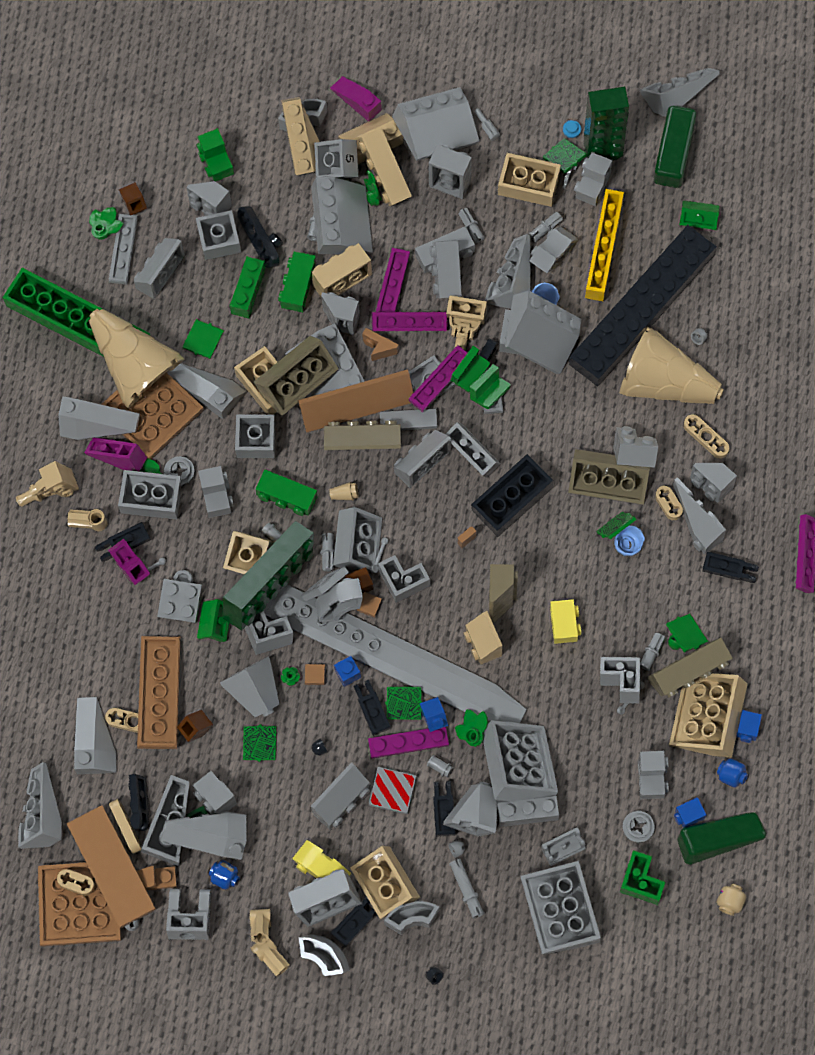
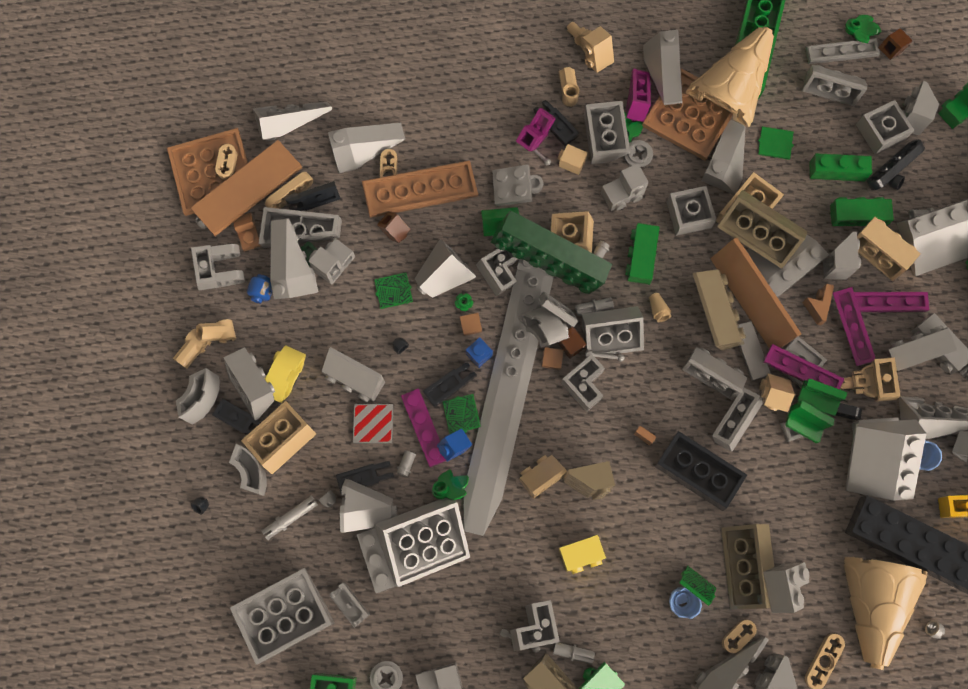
camera: 75 degrees right, 5 degrees up
(168, 535) = (572, 159): none -> tan brick
(456, 407) = (776, 392): none -> tan brick

